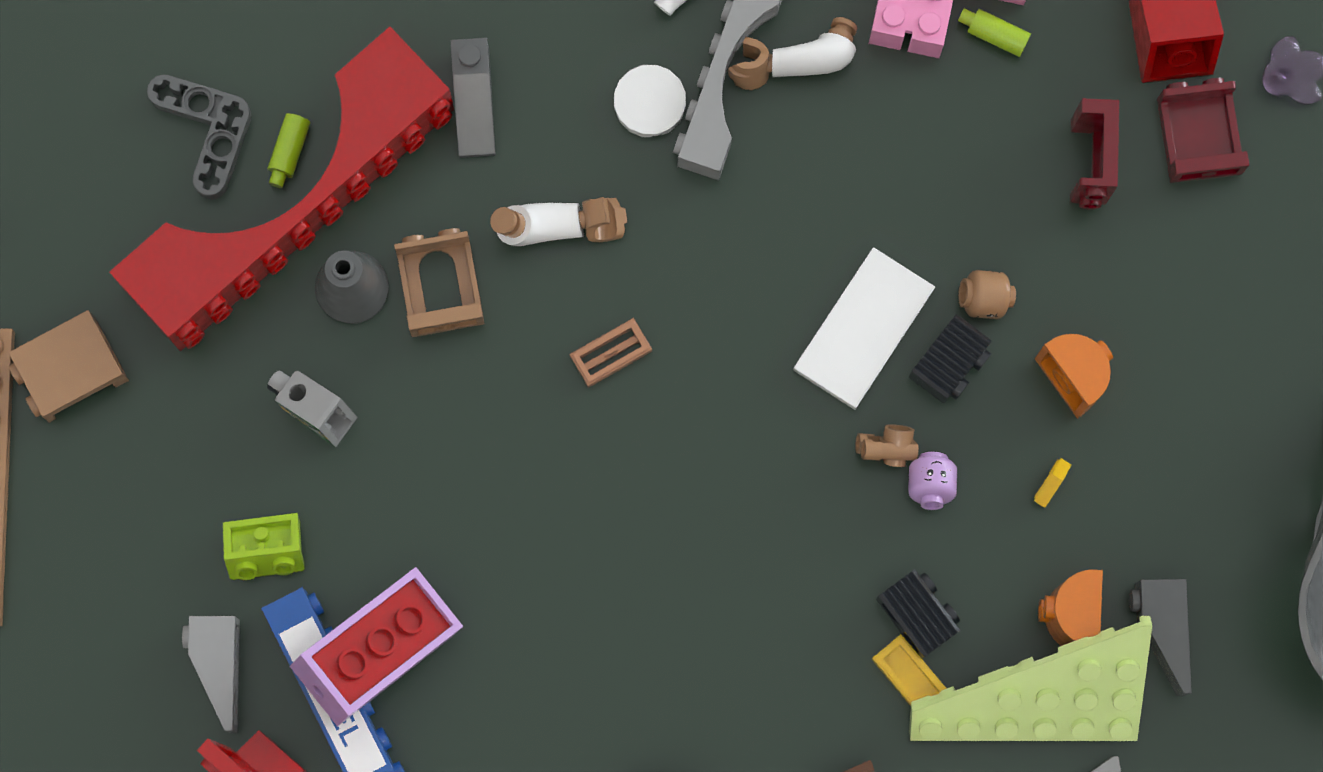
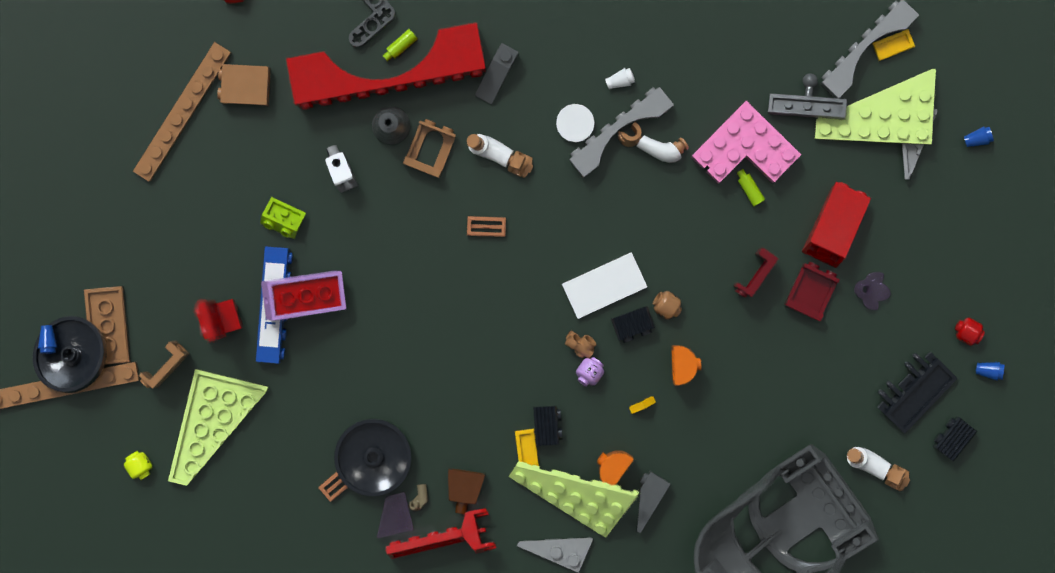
camera: 35 degrees right, 10 degrees up
(215, 656) = (232, 254): light grey slope -> none

